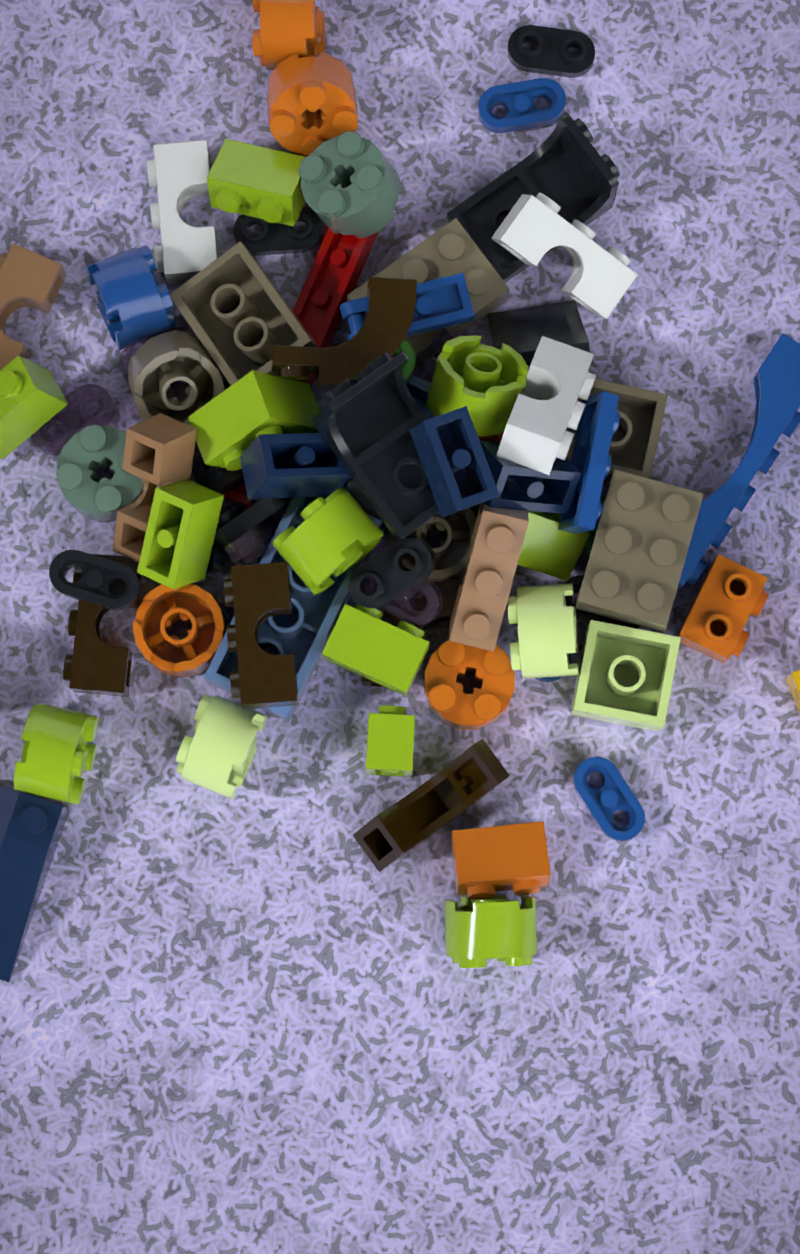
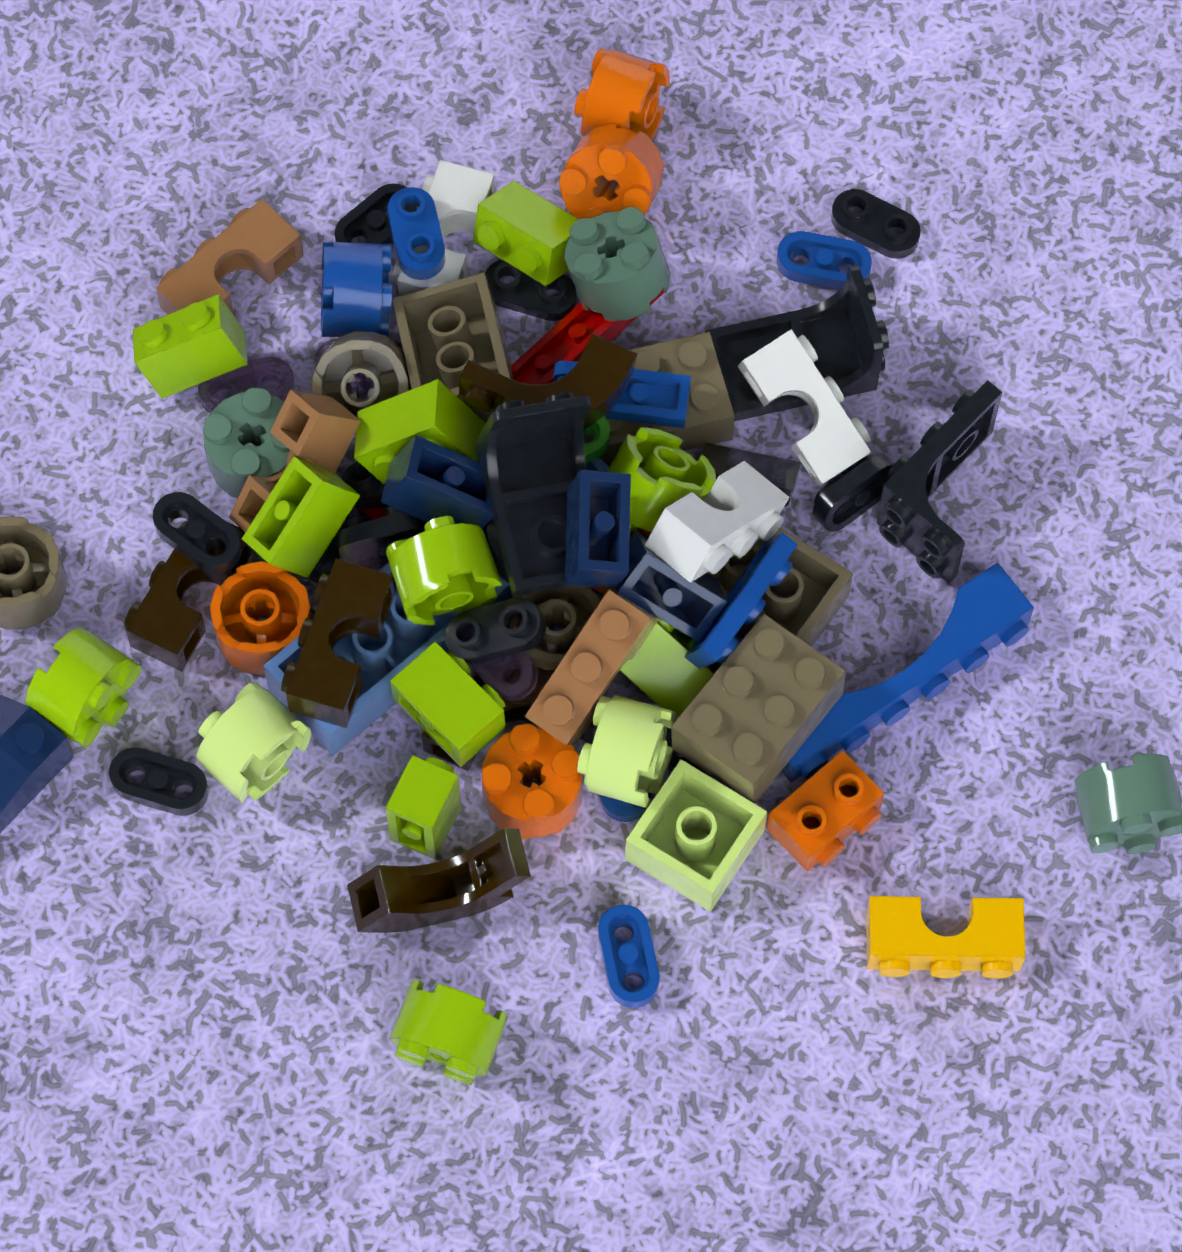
camera: 20 degrees right, 15 degrees down
(116, 222) = (370, 218): none -> black plate
(154, 804) = (161, 779): none -> black plate
(163, 222) = (415, 230): none -> blue plate
(500, 860) = (490, 965): orange brick -> none
(625, 325) = (852, 494): none -> black plate
(688, 313) = (904, 506): none -> black bracket

